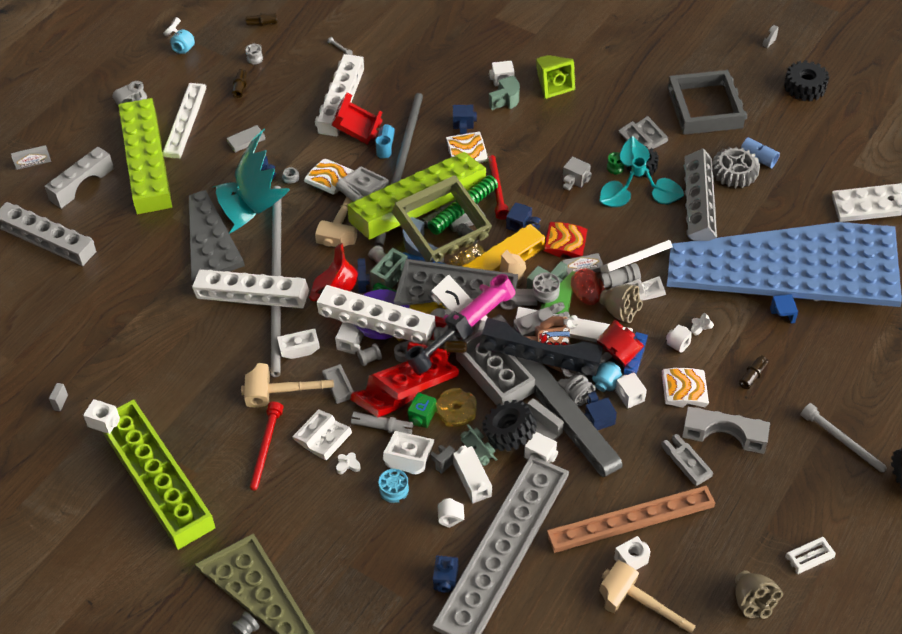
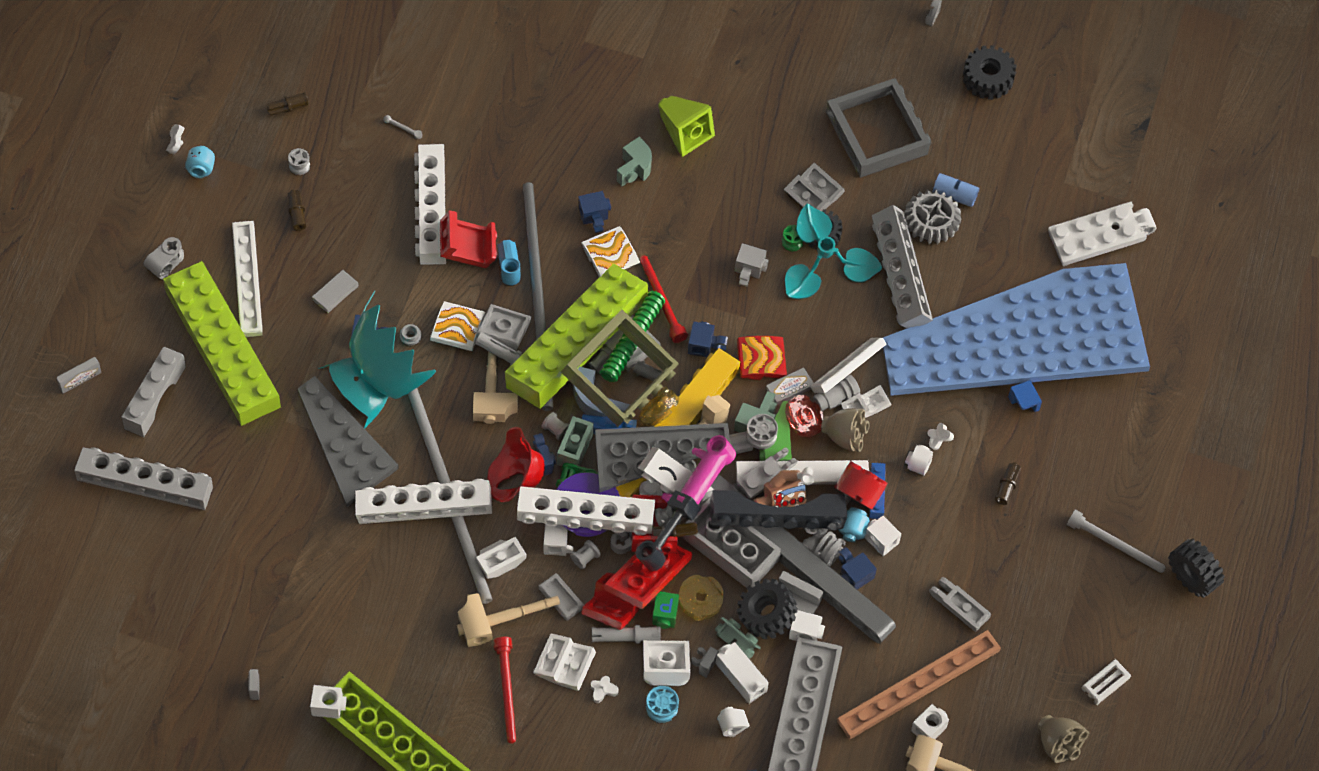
camera: 20 degrees left, 10 degrees up
(501, 70) = (621, 131): white brick -> none
(685, 387) = (939, 518): slope -> none
(750, 432) = (1020, 558): light grey arch -> none

